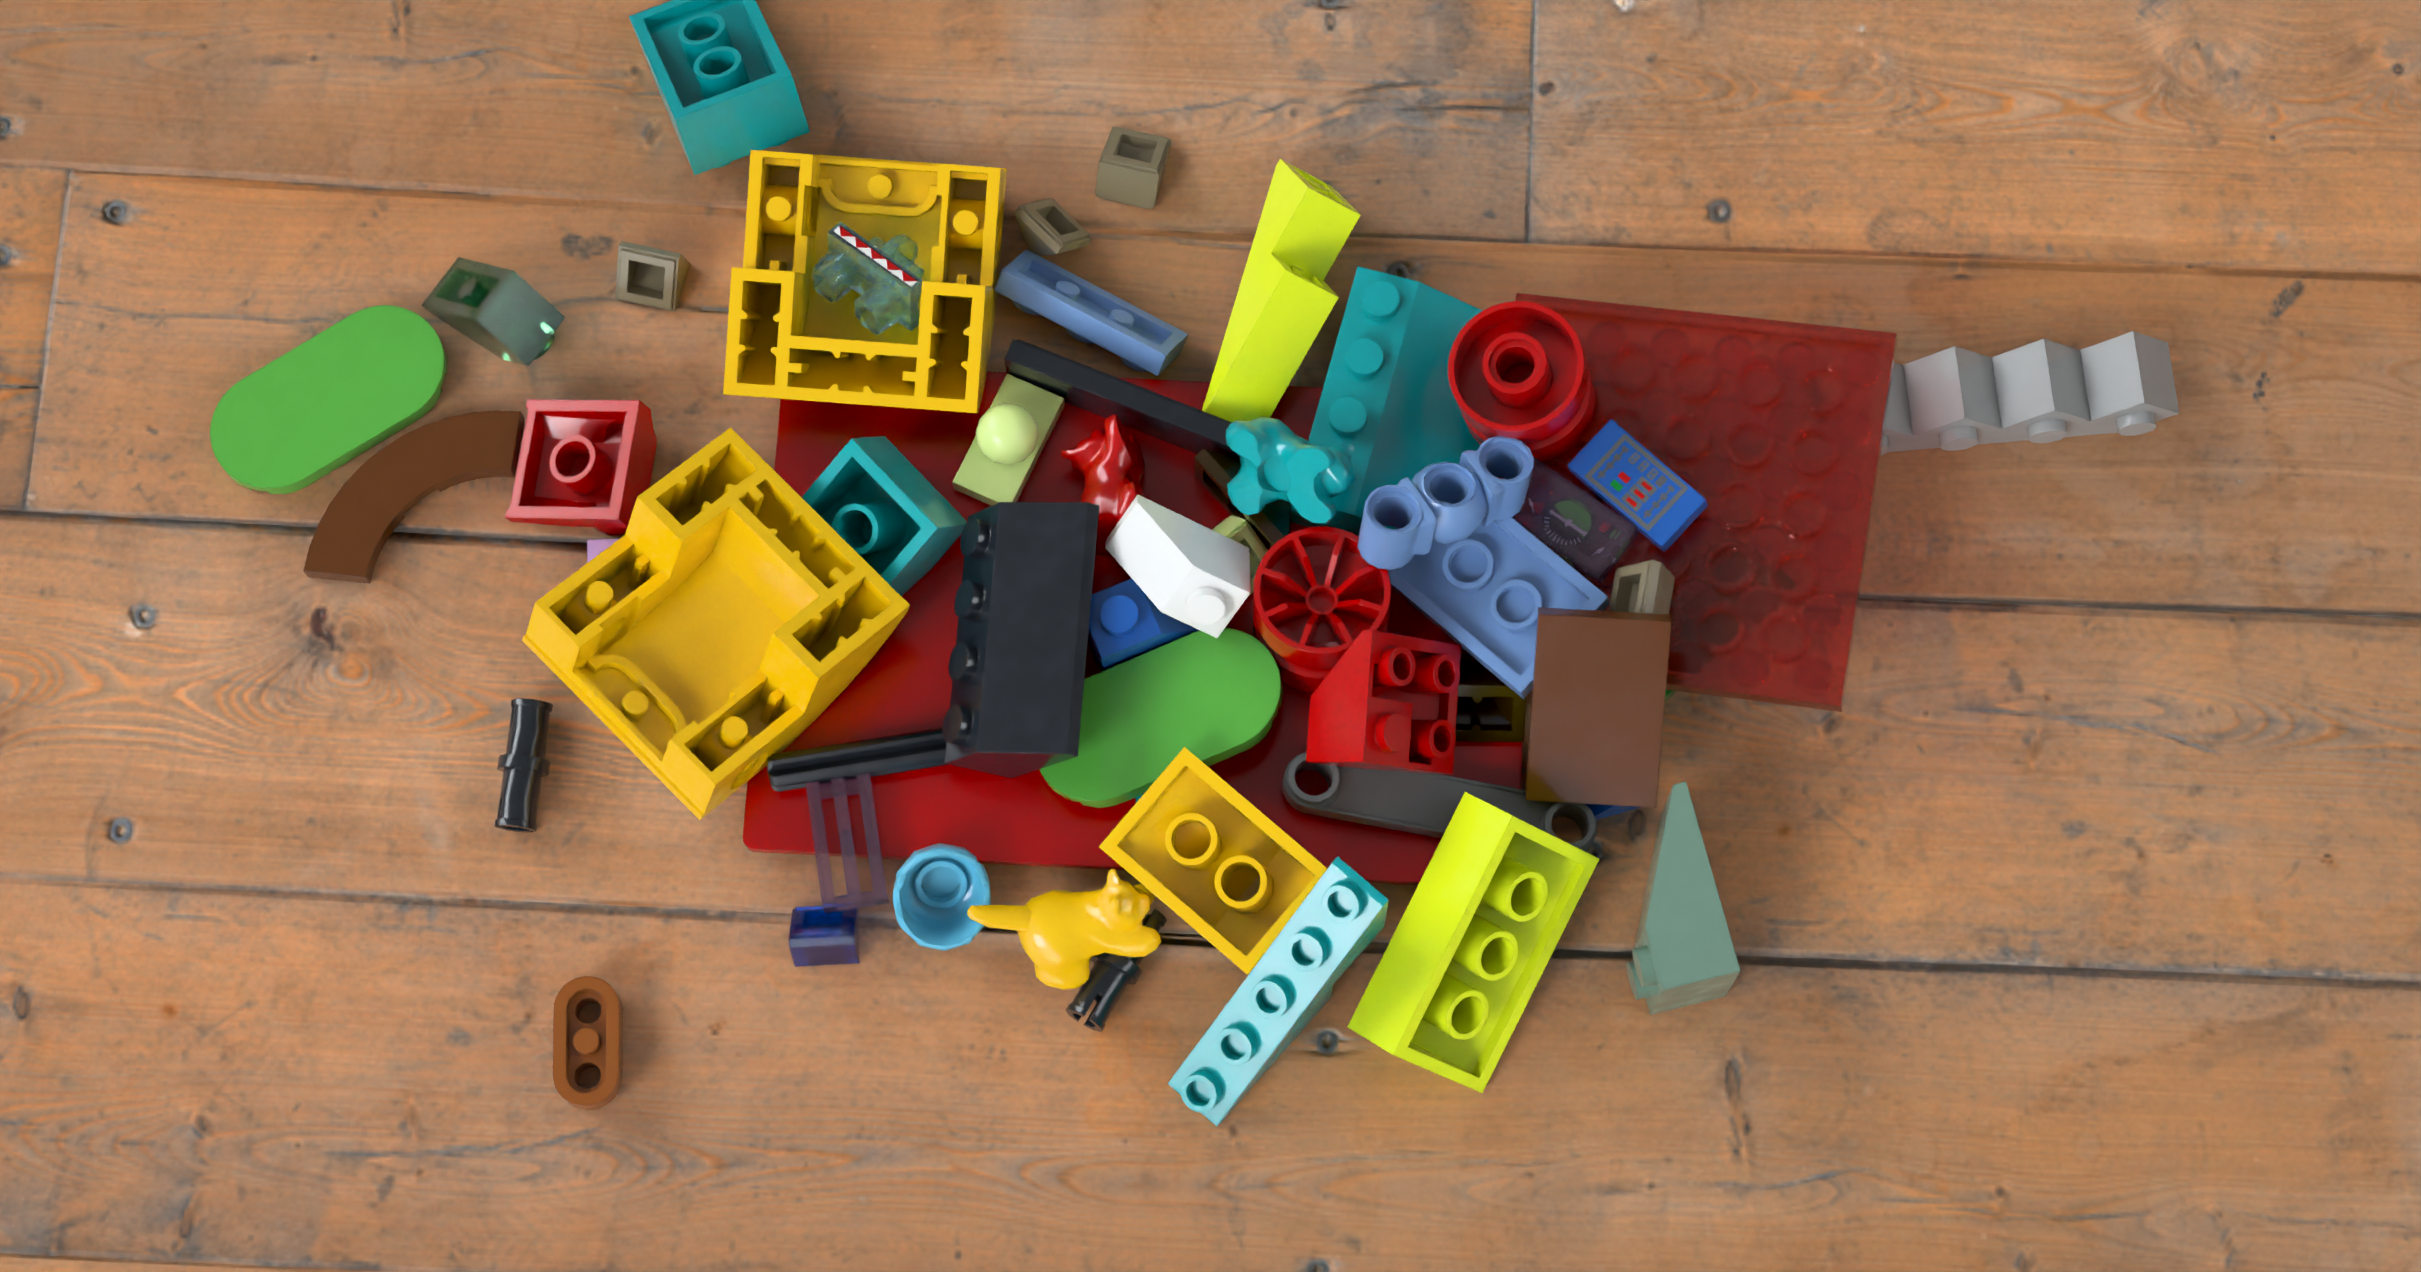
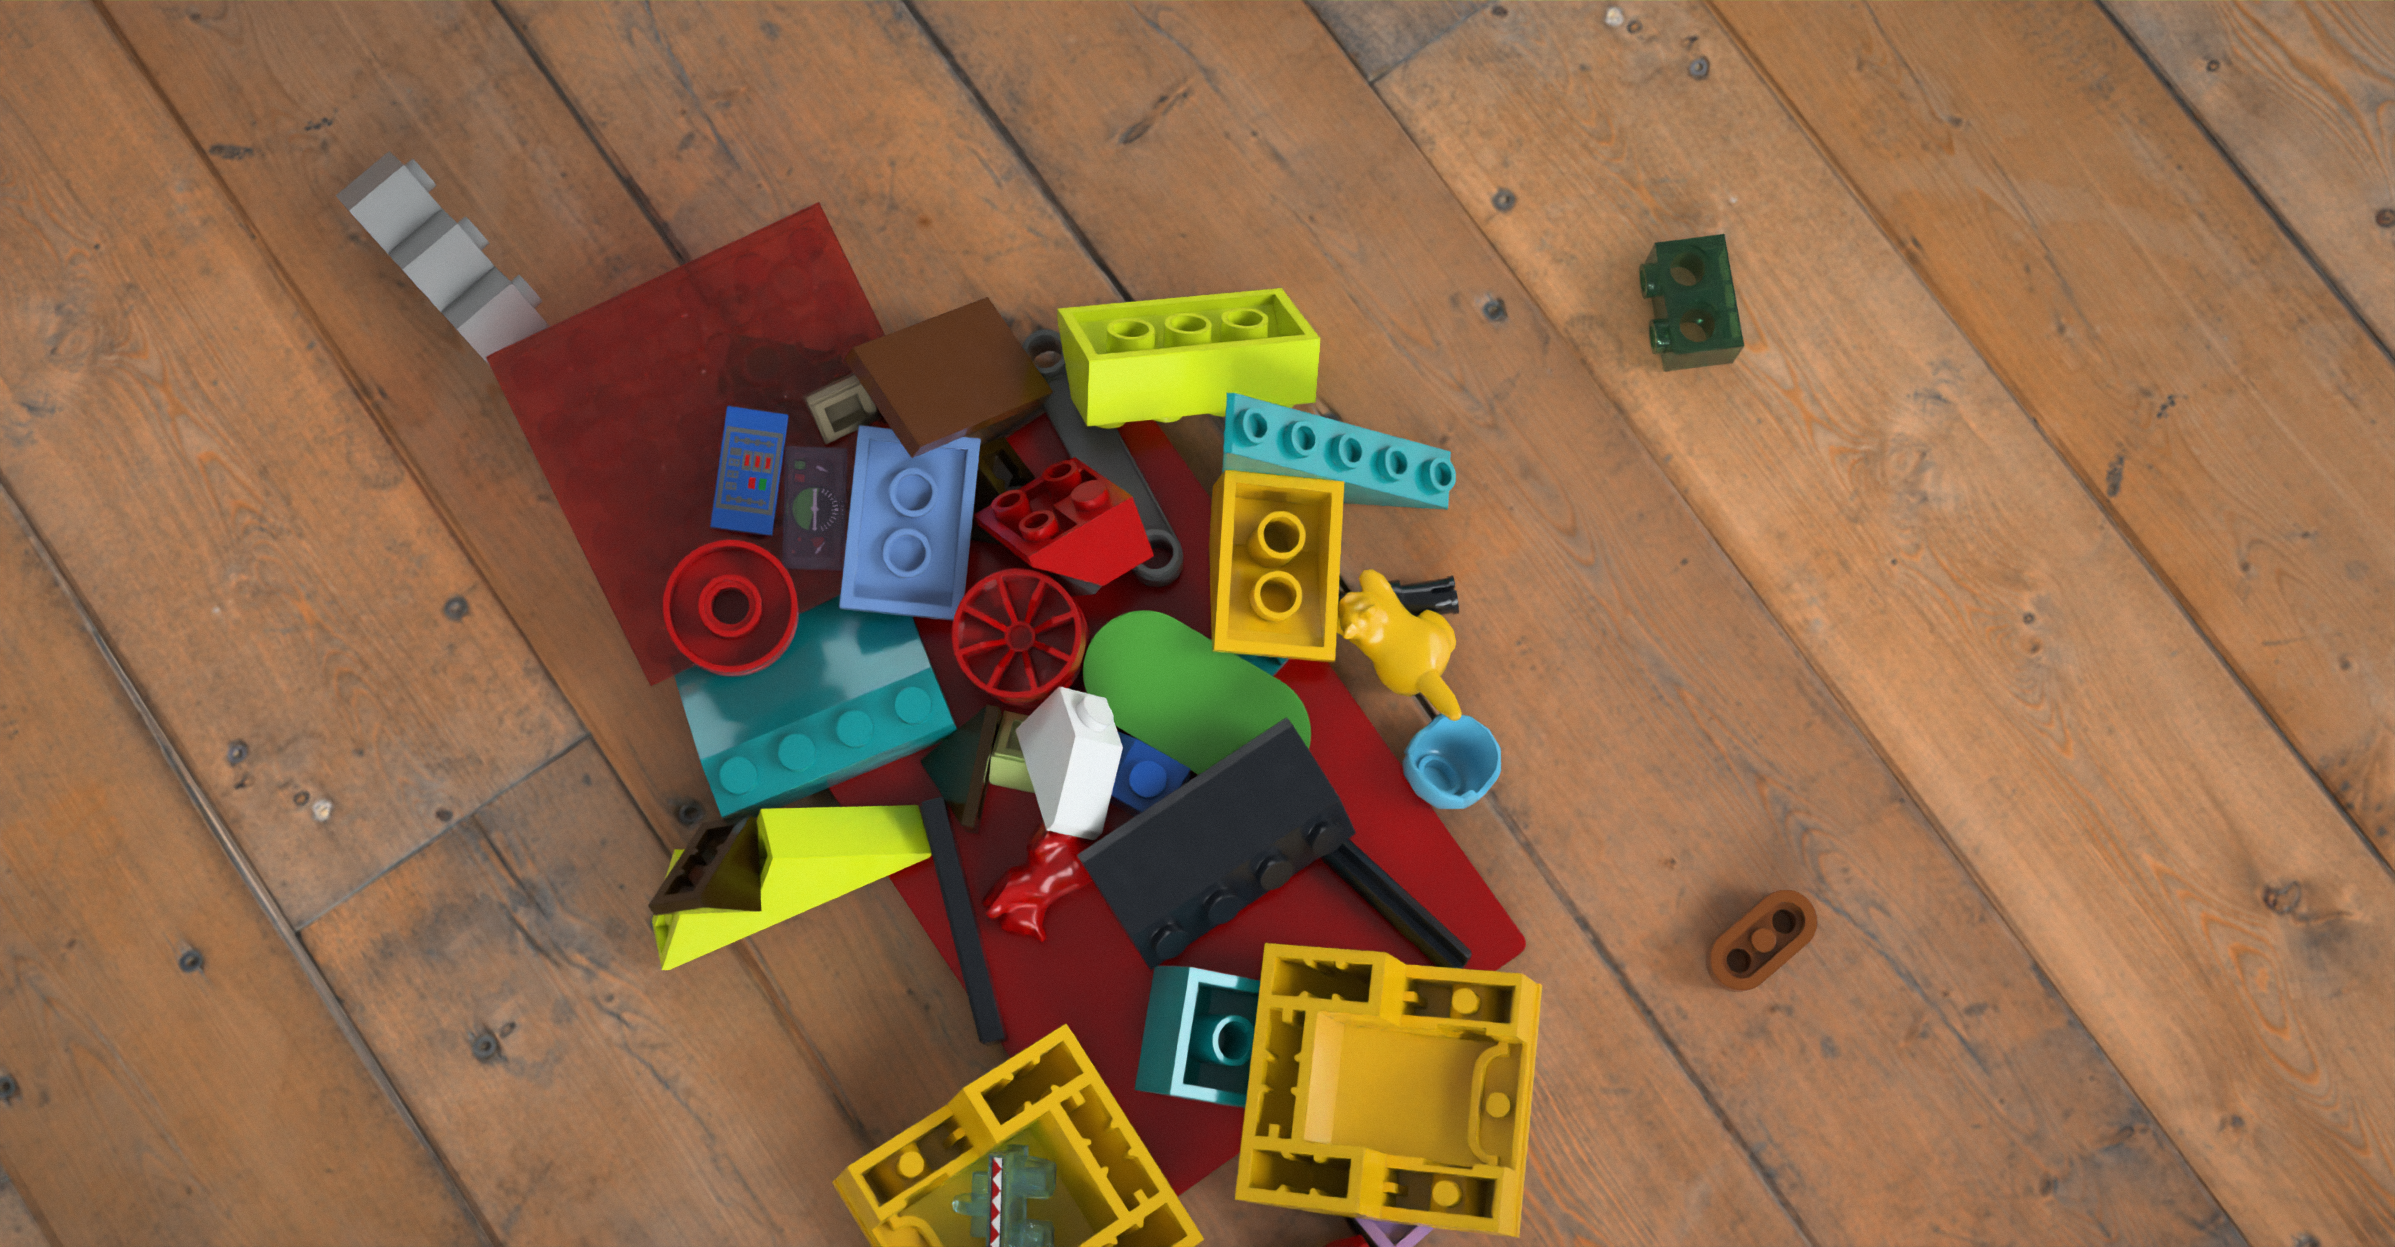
camera: 130 degrees left, 5 degrees up
(523, 765) = (1601, 1166): black pin -> none
(824, 937) = (1539, 836): clear blue slope -> none
(839, 790) = (1501, 828): clear purple tile -> none
(1008, 442) = (1062, 993): yellowish green tile -> none
(1049, 228) = (855, 1107): dark tan slope -> none
(1091, 313) = (904, 1017): medium blue plate -> none
(1132, 167) = (751, 1087): dark tan slope -> none
(1286, 468) = (937, 741): teal animal -> none
(1312, 224) = (714, 871): none -> dark brown slope
(1420, 517) = (851, 583): medium blue piece -> none
(1682, 932) = (1055, 228): sand green slope -> none

